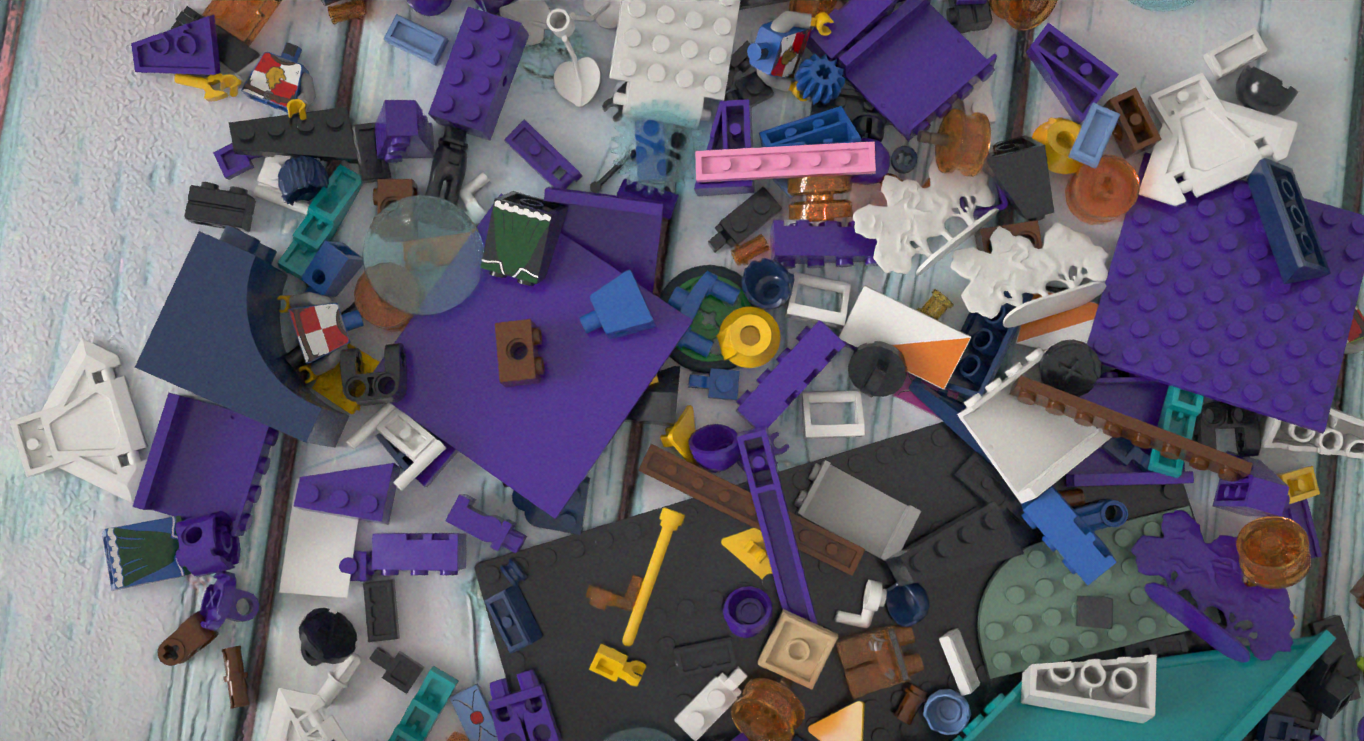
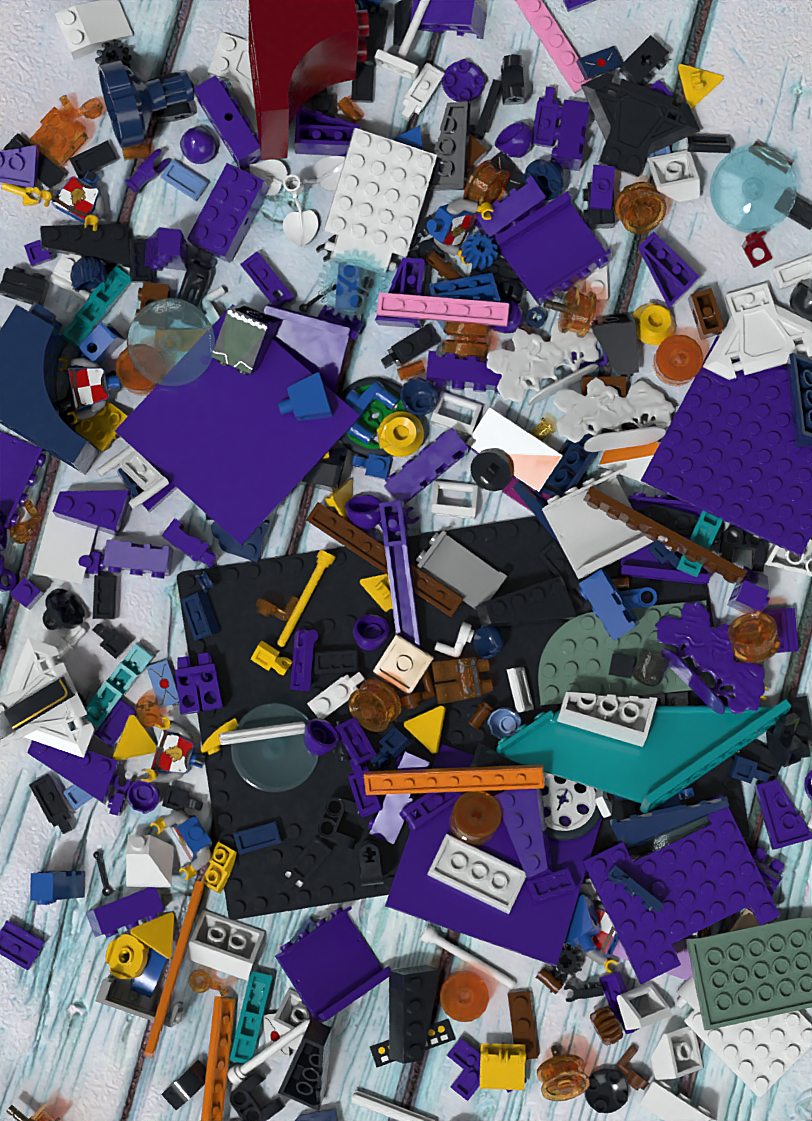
camera: 10 degrees right, 0 degrees up
(260, 536) = (23, 531): none -> clear orange plate
(274, 620) = (26, 593): none -> dark purple brick
(292, 27) = (93, 159): none -> black tile
(362, 35) = (146, 171): none -> dark purple piece
(395, 369) = (108, 423): black piece -> none
(511, 336) = (226, 409): reddish brown brick -> none
(660, 661) = (303, 659): none -> dark purple plate
(773, 108) = (444, 268): none -> reddish brown pin
(816, 697) = (412, 701): none -> reddish brown plate
(1070, 367) = (629, 486): black tile -> none
(1094, 135) = (674, 319): medium blue tile -> none
(1134, 403) = (675, 520): none -> black plate
(1135, 612) = (650, 668): none -> clear smoke helmet
(1177, 21) = (754, 241): none -> dark red bracket
(1301, 483) = (787, 596): yellow slope -> none

